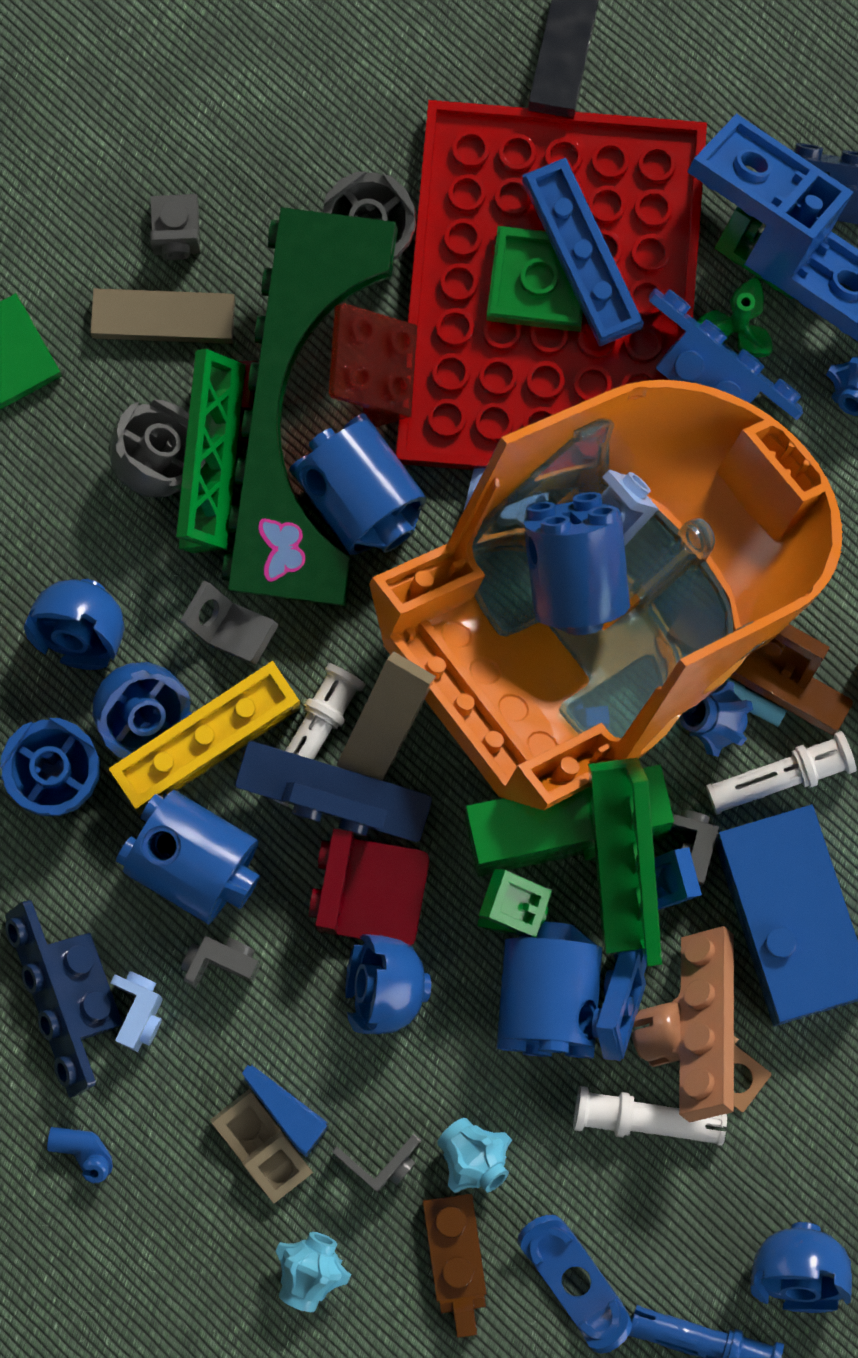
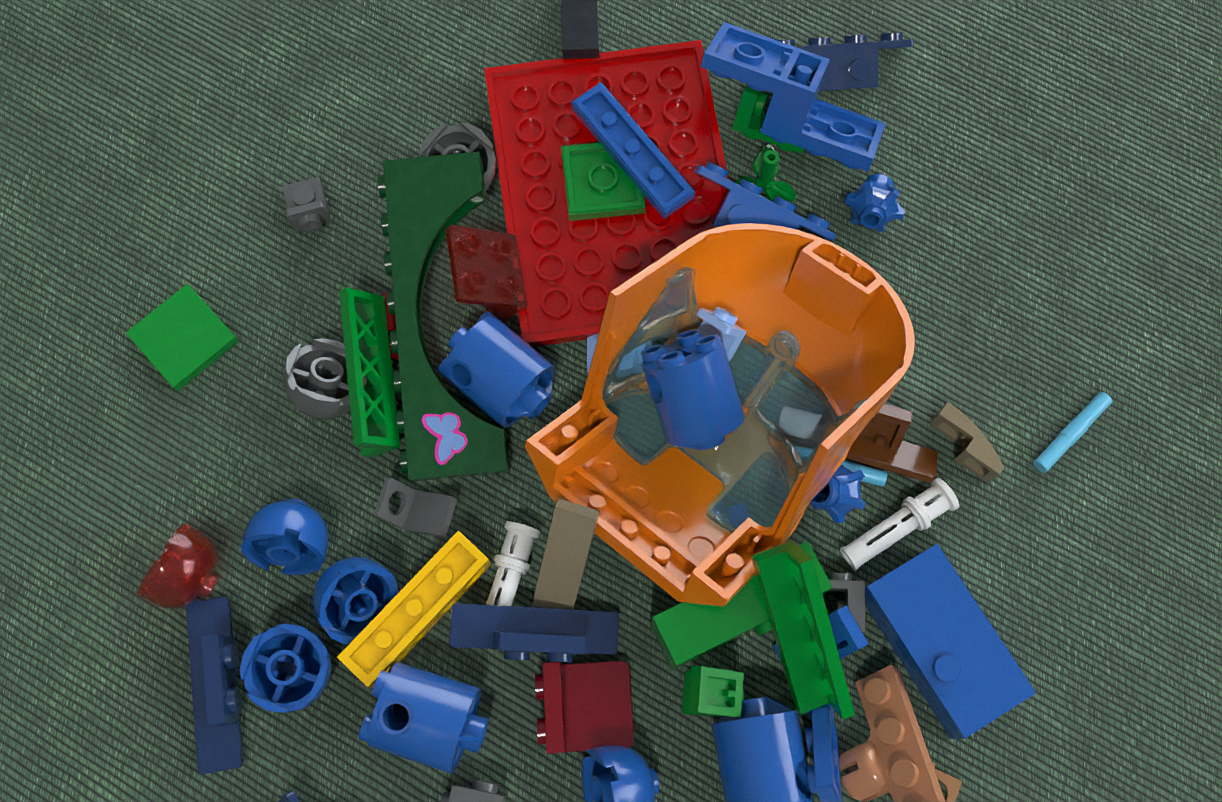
camera: 15 degrees left, 5 degrees down
(163, 316) = (310, 275): dark tan tile -> none

